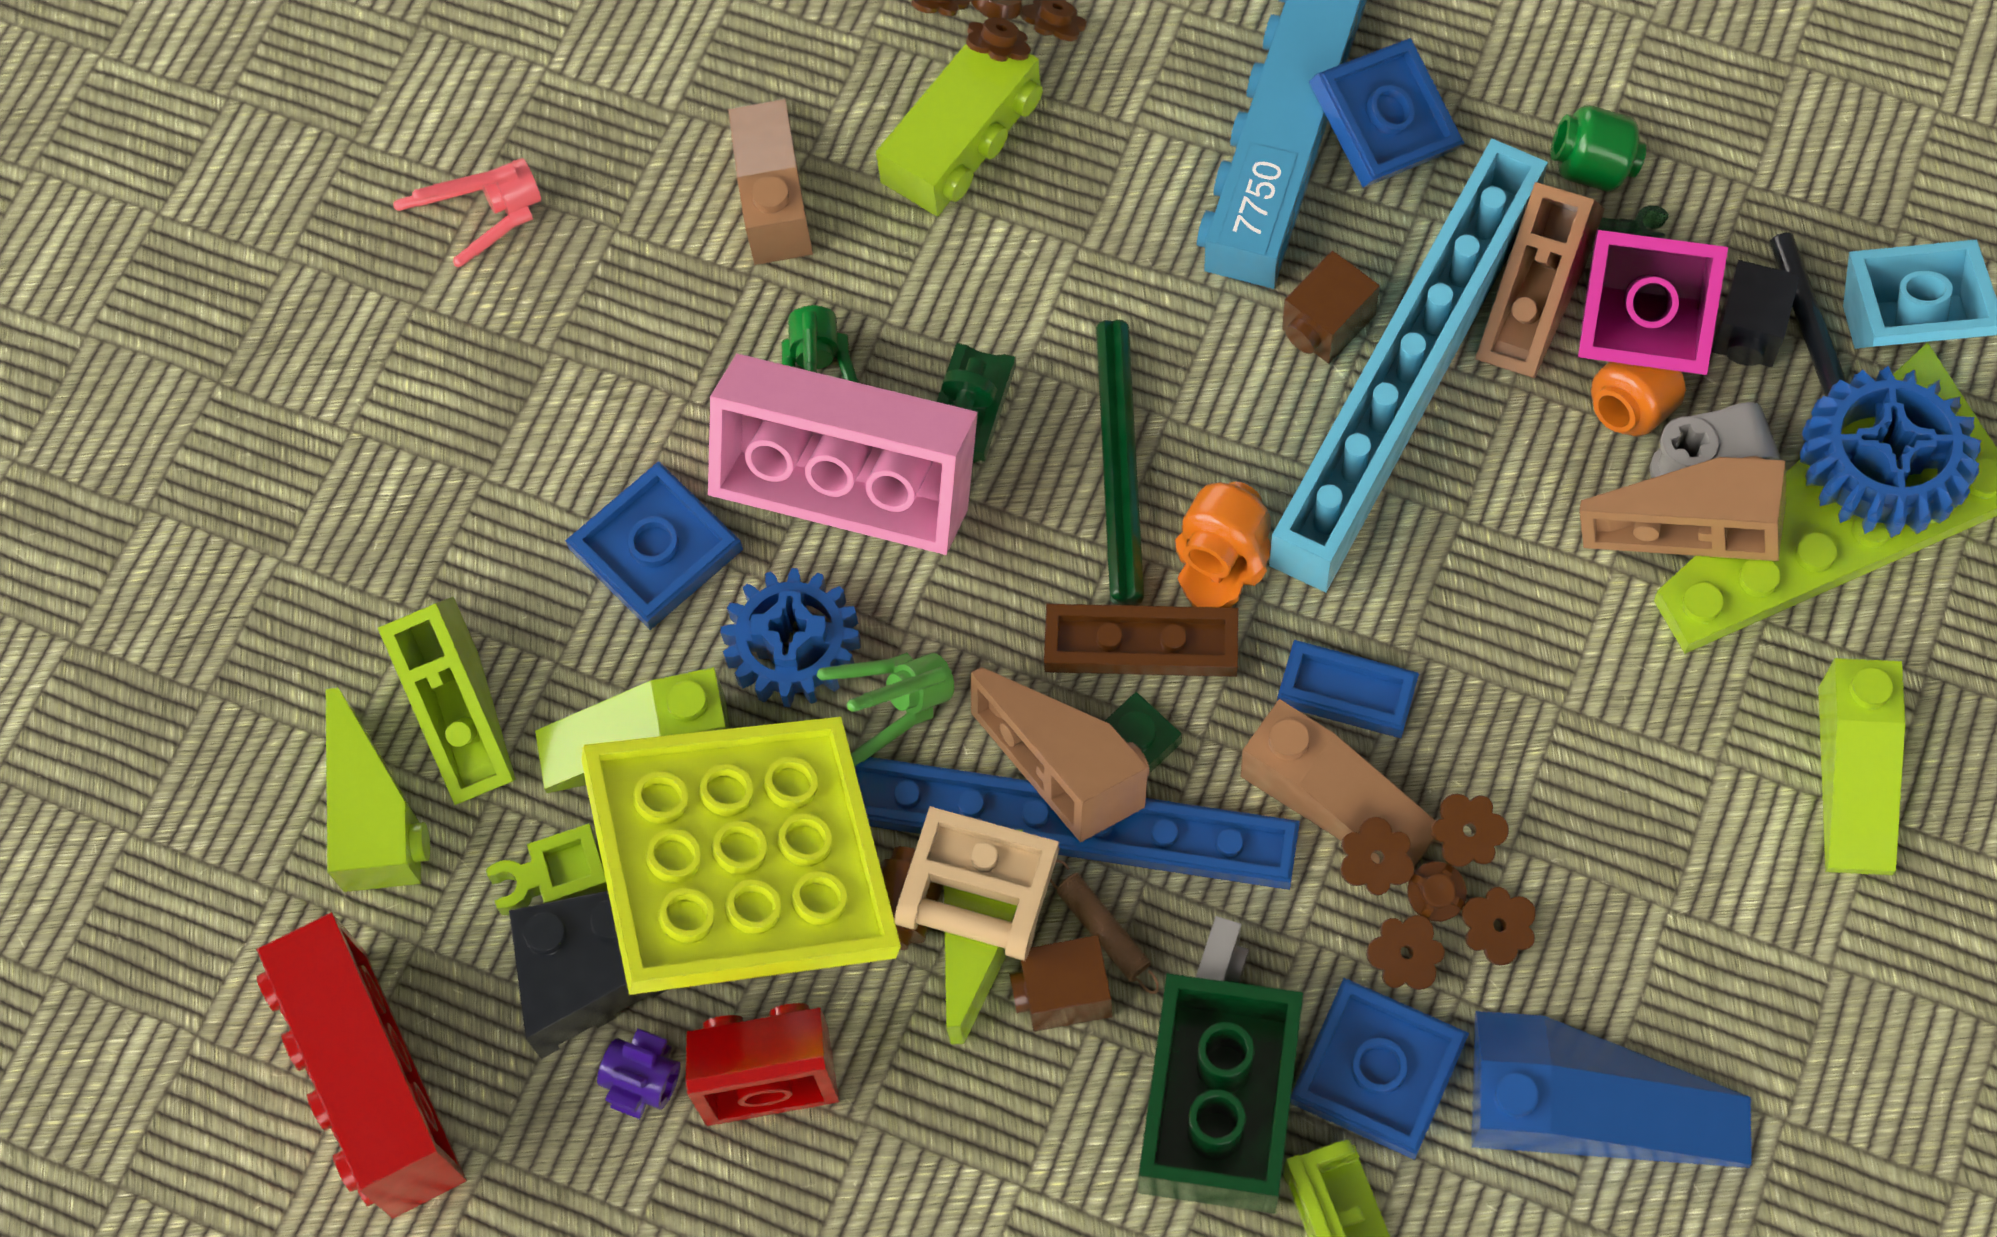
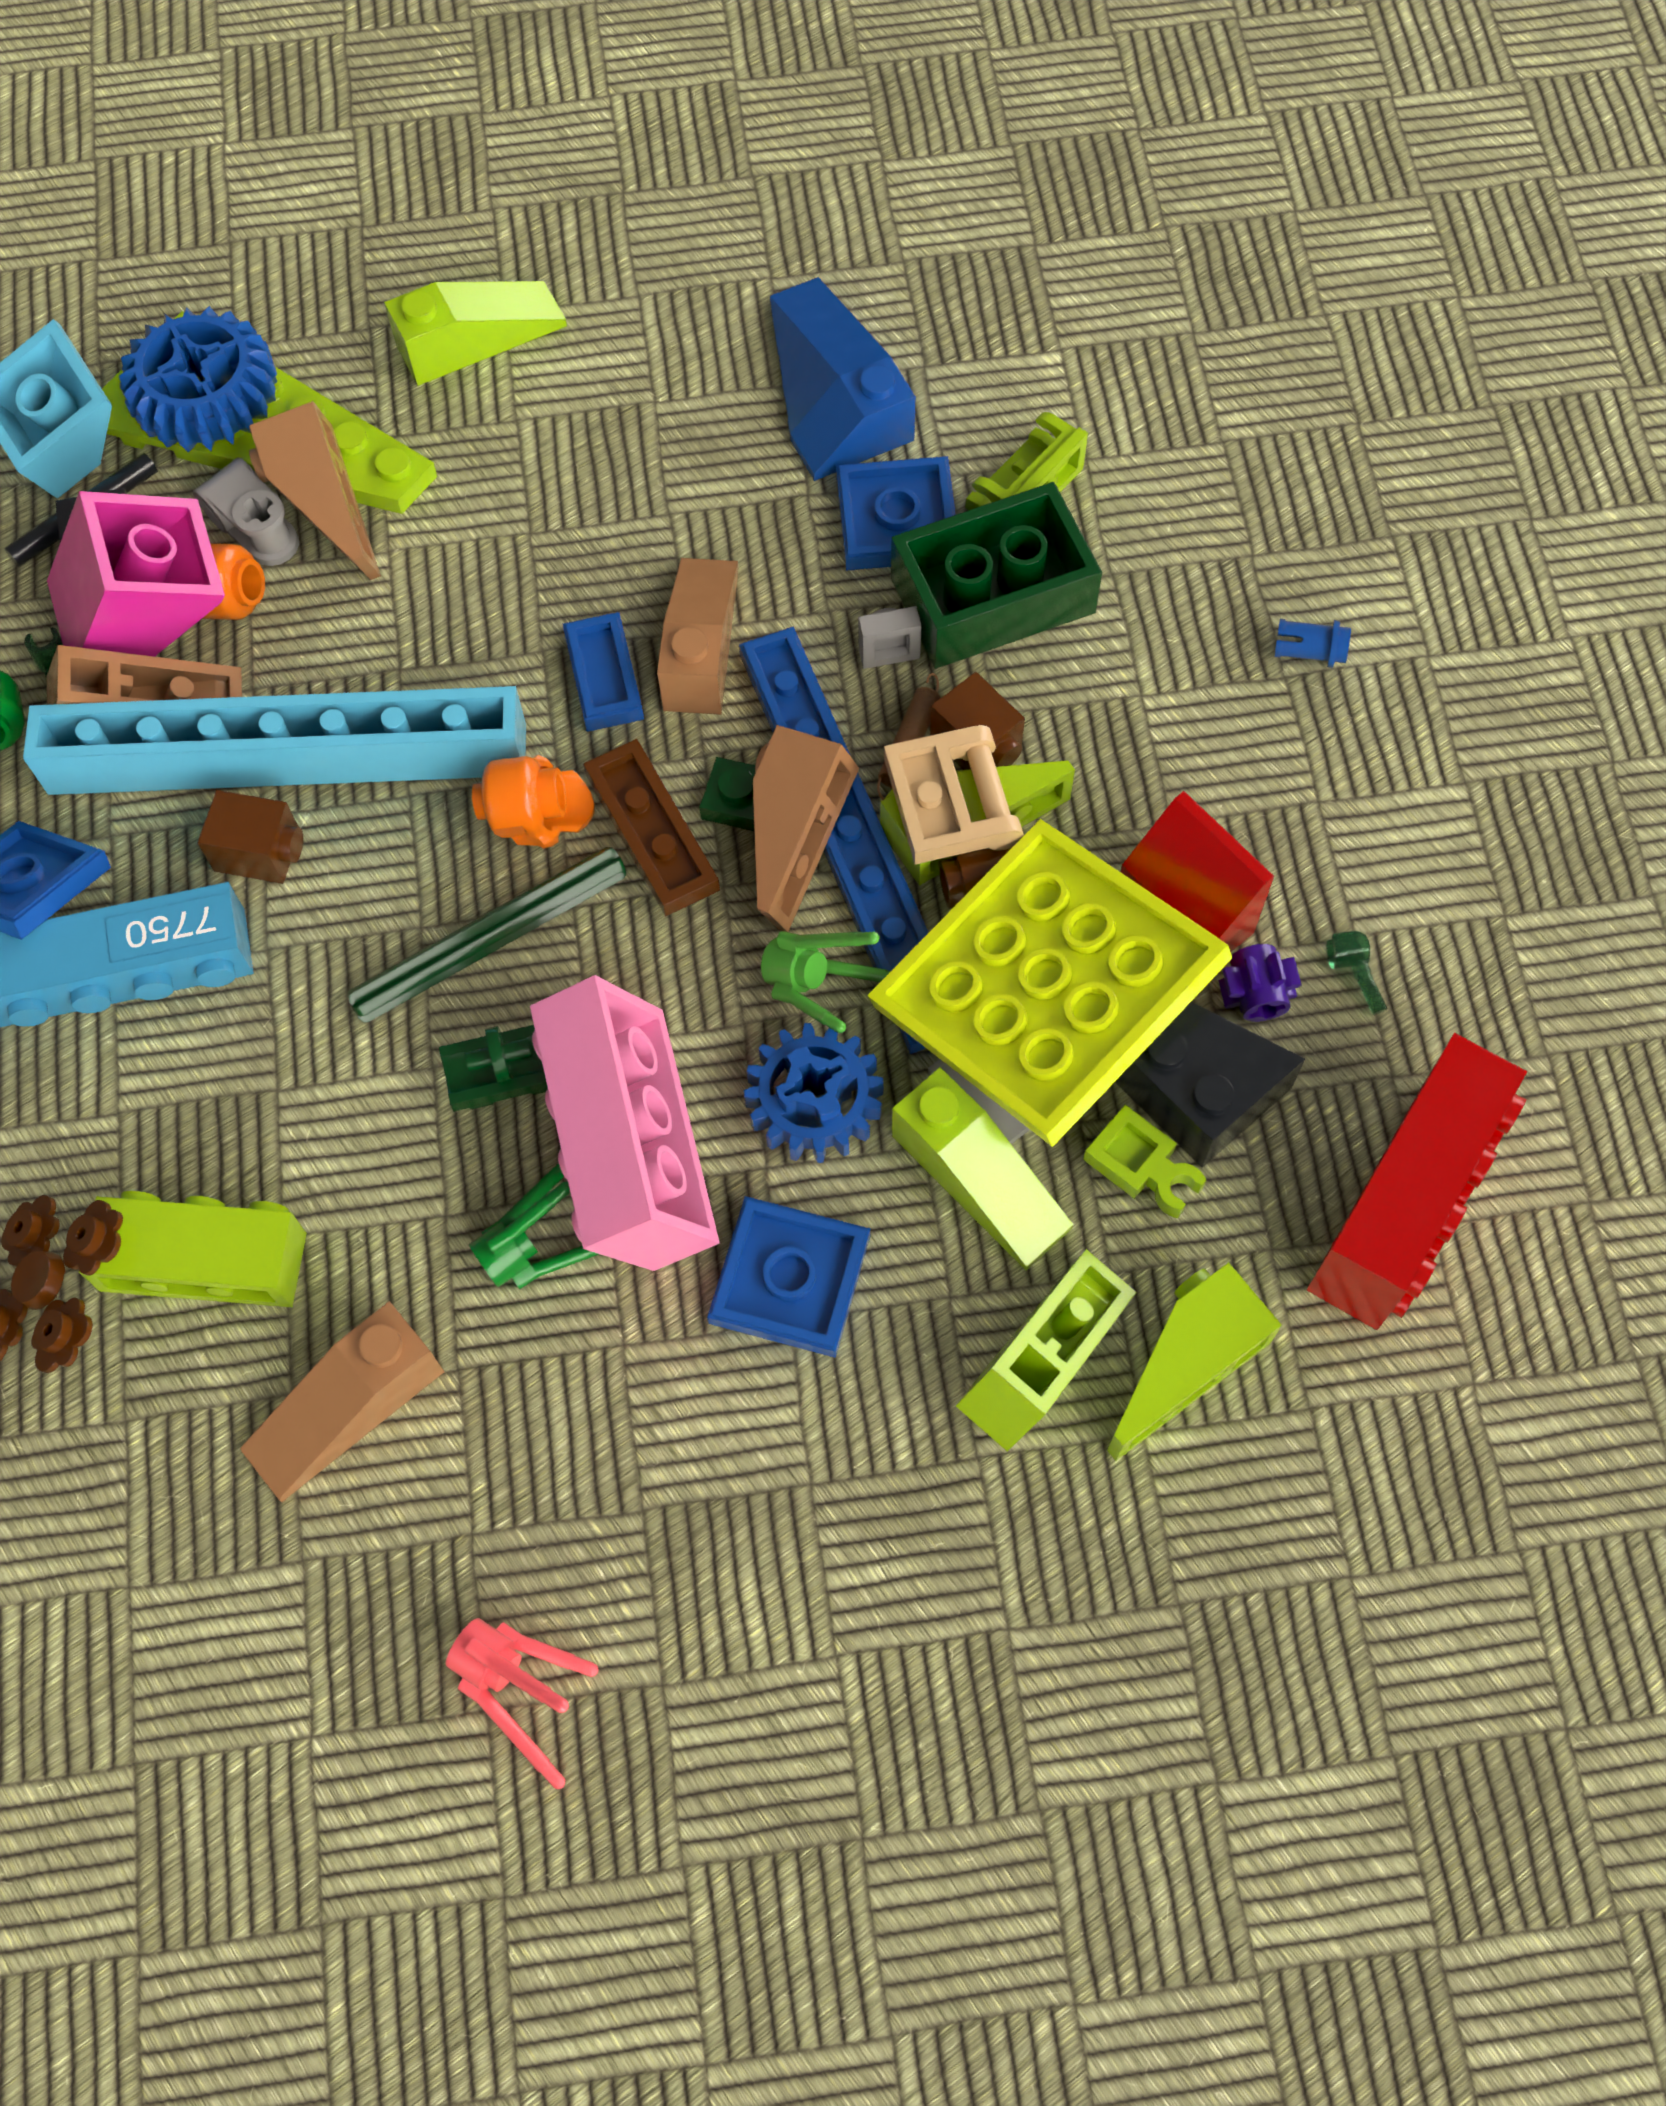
camera: 125 degrees left, 0 degrees up
(623, 1192) = (1353, 951): none -> clear green hand
(1437, 891) = (740, 530): reddish brown plant -> none

